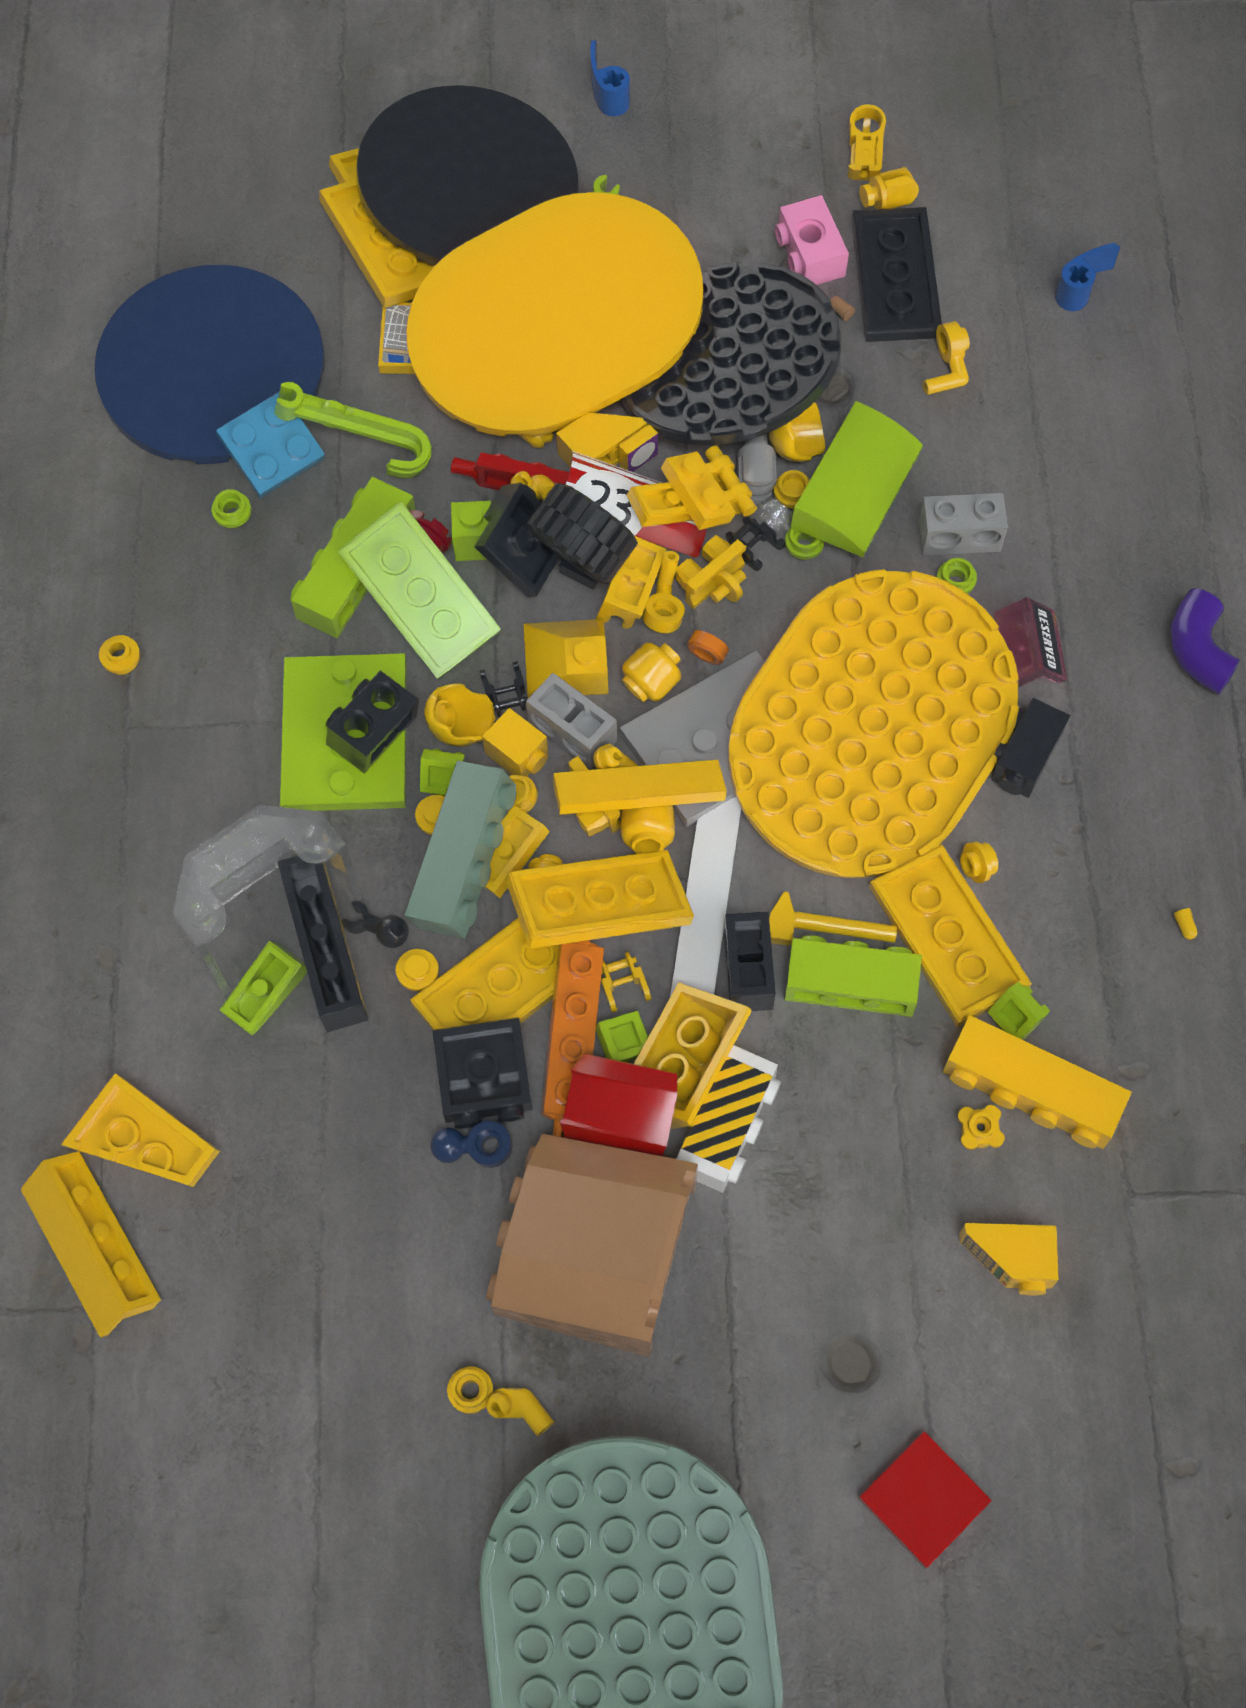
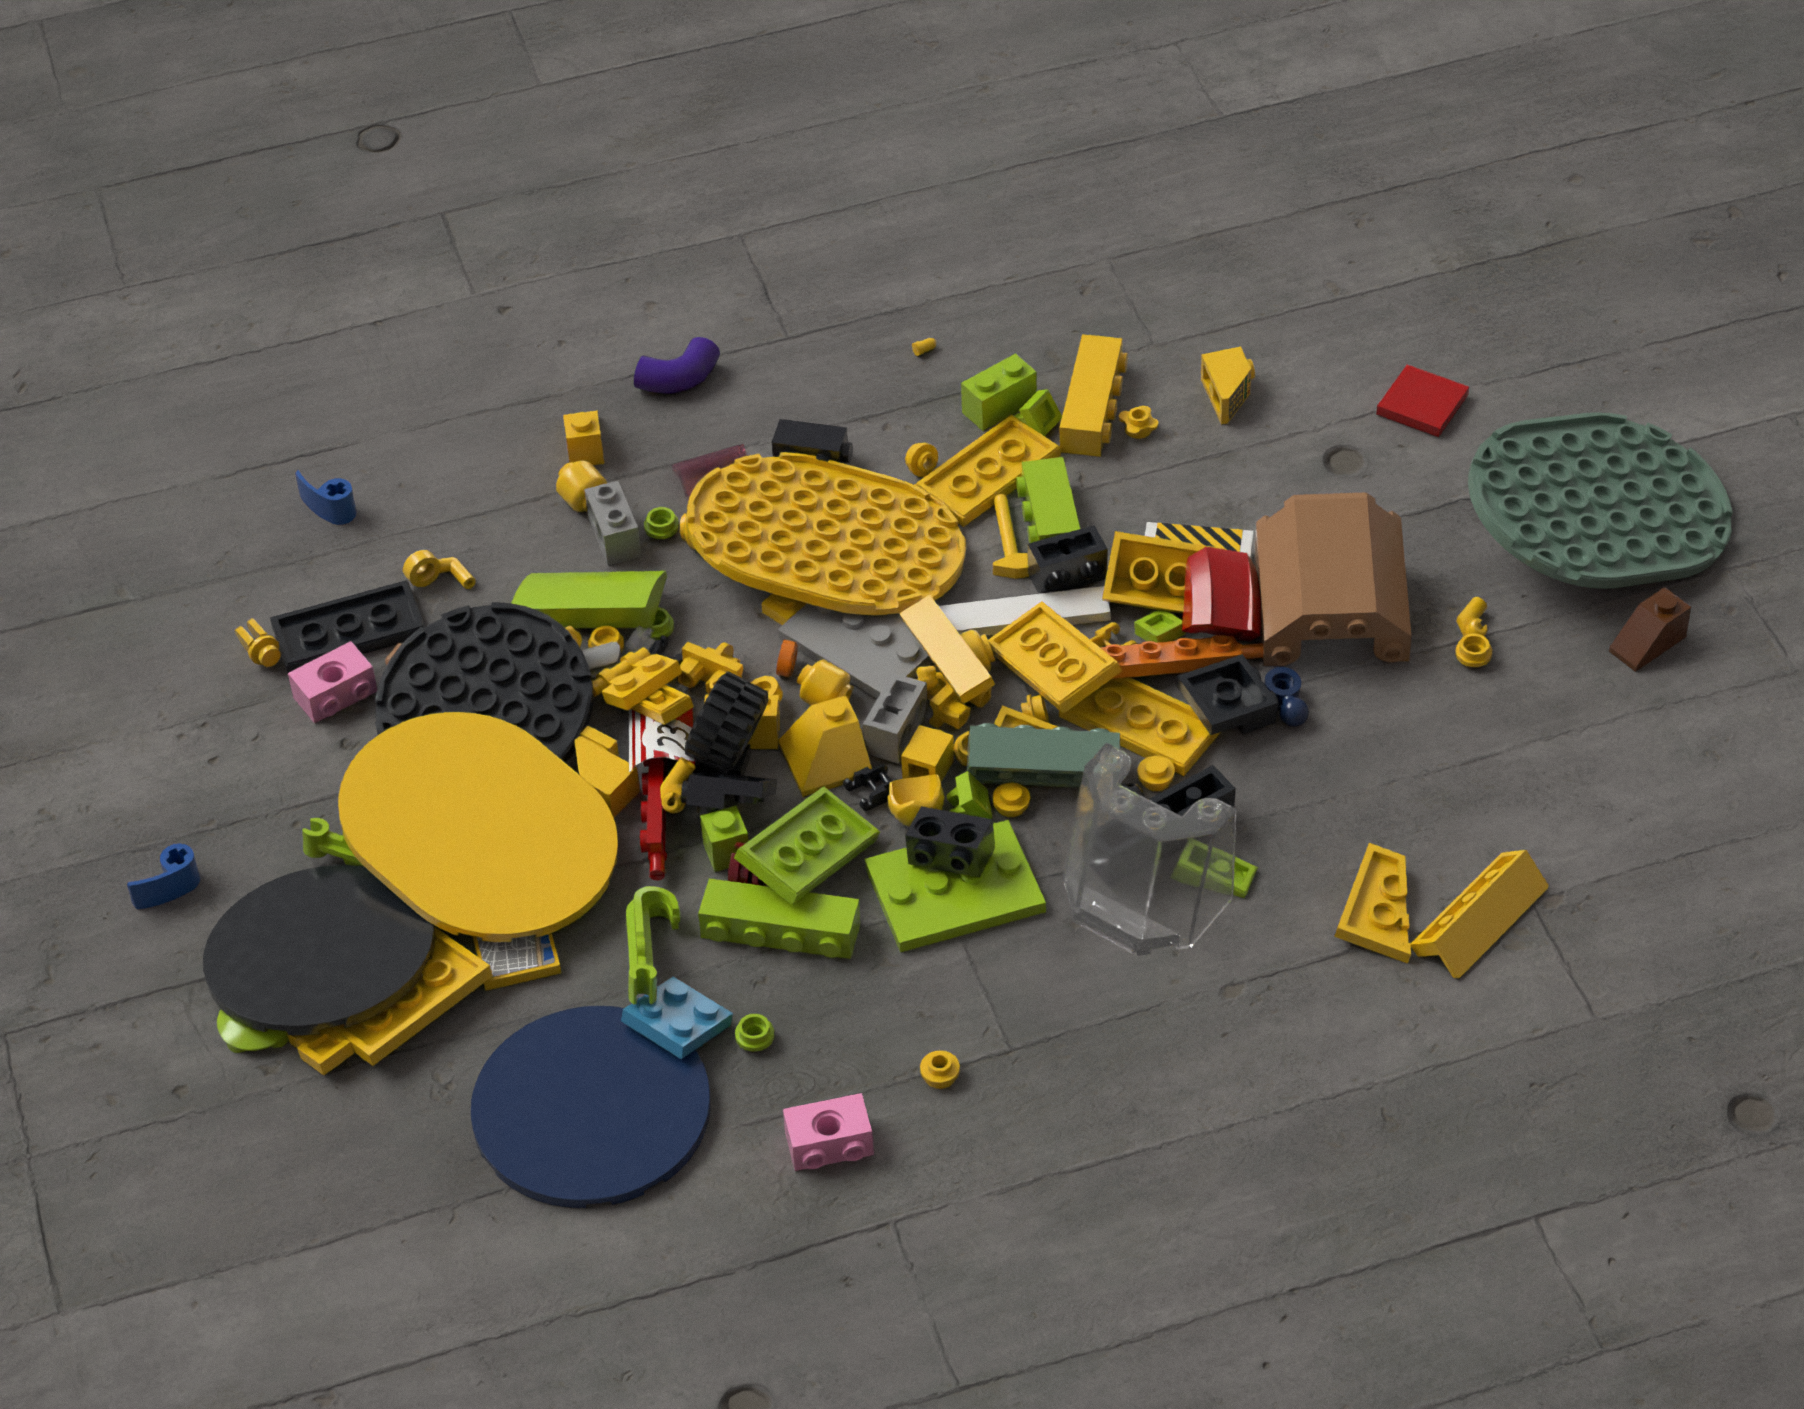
camera: 105 degrees left, 20 degrees down
(86, 557) = (840, 1118): none -> bright pink brick
(417, 1621) = (1652, 629): none -> reddish brown slope
(866, 146) = (207, 670): yellow piece -> none
(1031, 506) = (573, 480): none -> yellow head
(1066, 974) = (998, 391): none -> lime brick
(1120, 526) = (584, 437): none -> yellow slope

